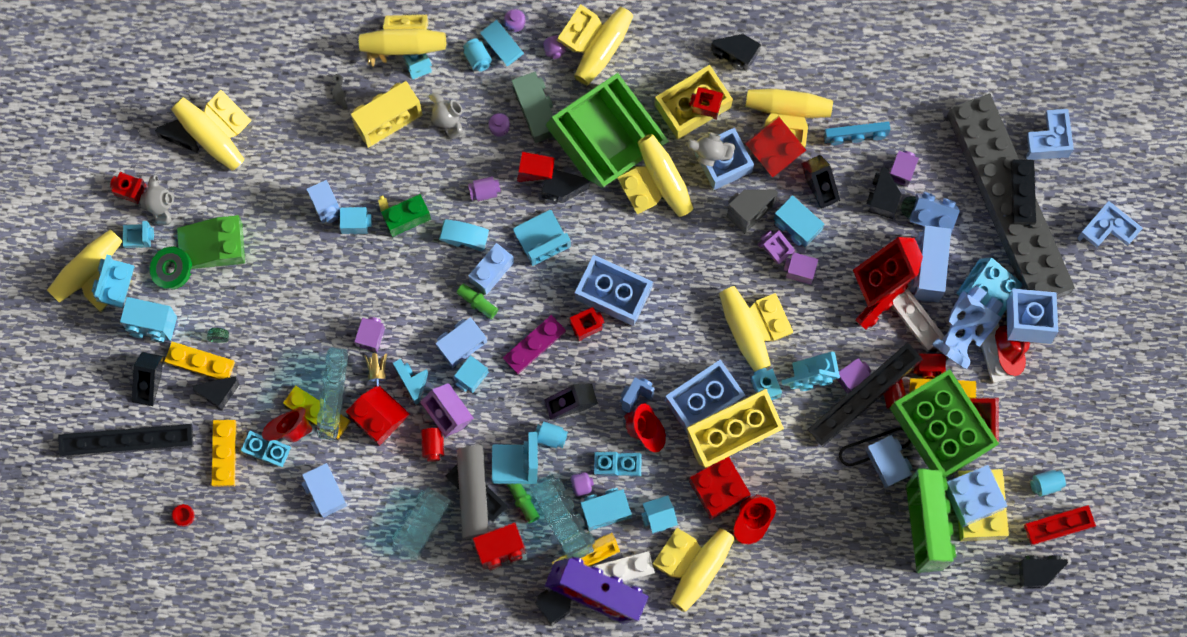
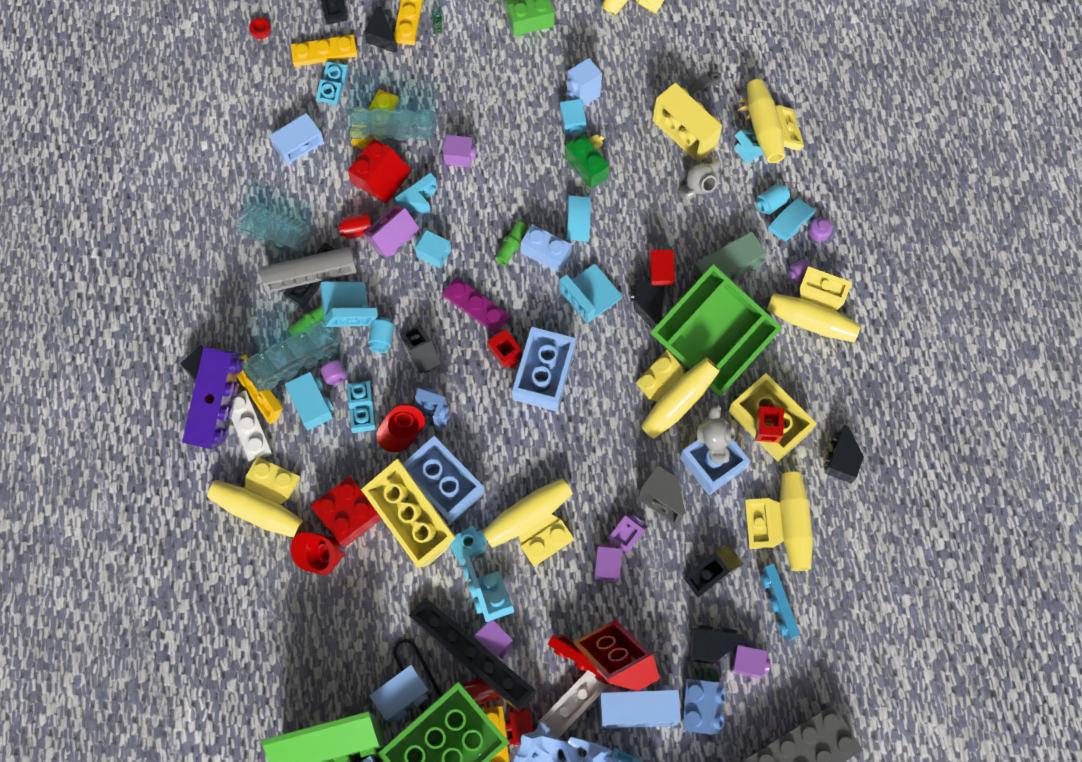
camera: 80 degrees right, 5 degrees down
(289, 426) = (353, 94): red piece -> none
(375, 372) = (422, 163): pearl gold piece -> none
(460, 342) = (465, 234): light blue brick -> none
(484, 189) = (630, 229): medium lavender brick -> none
(499, 124) = (703, 233): medium lavender piece -> none
(499, 547) = (253, 301): red brick -> none
(659, 514) = (309, 454): medium azure brick -> none
(775, 146) = (740, 510): red brick -> none
(798, 222) = (661, 552): medium azure brick -> none

